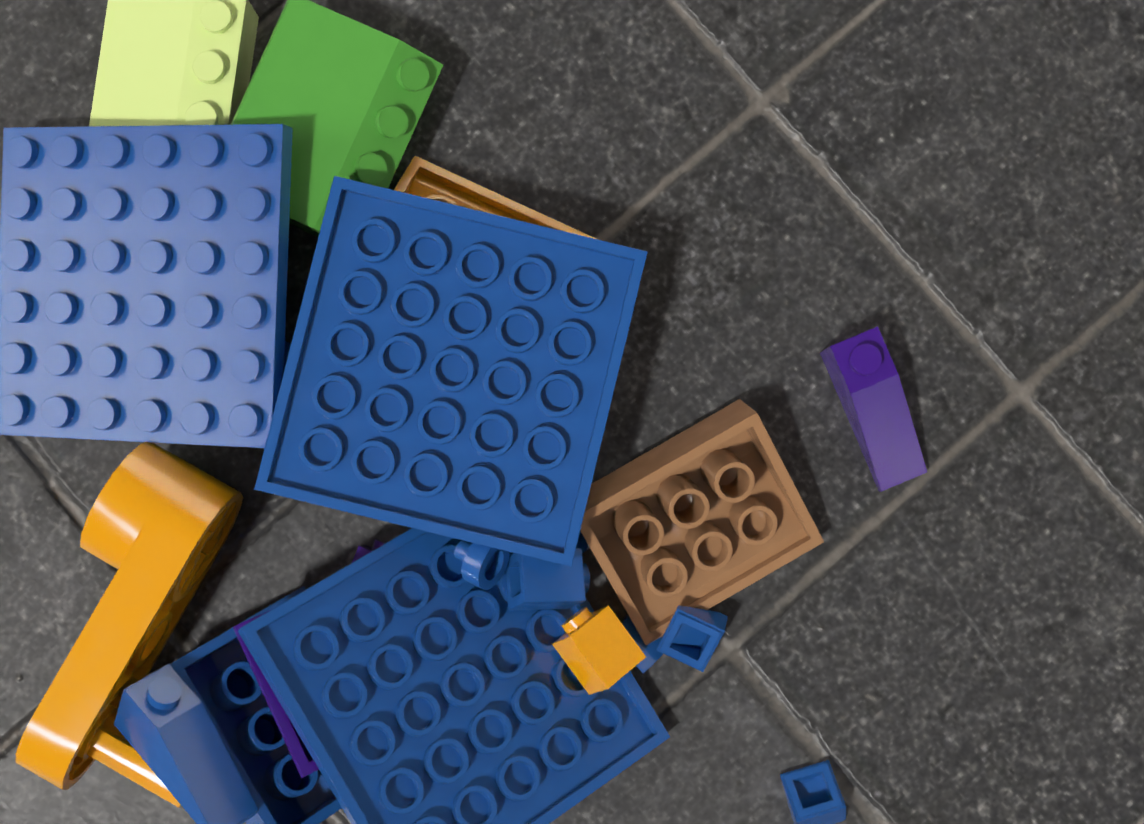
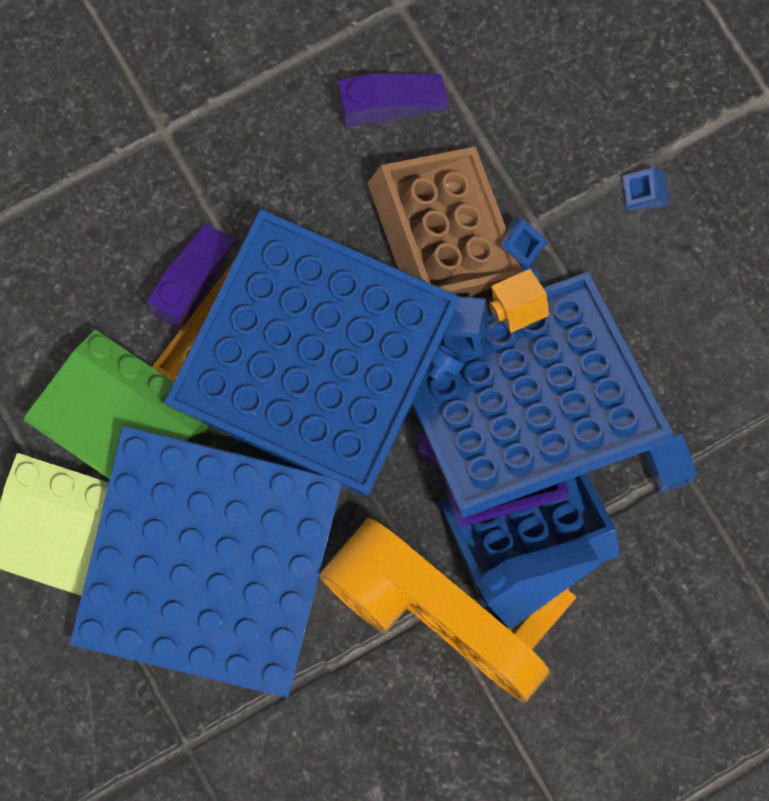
camera: 75 degrees left, 10 degrees down
(555, 181) = (190, 276): none -> dark purple slope

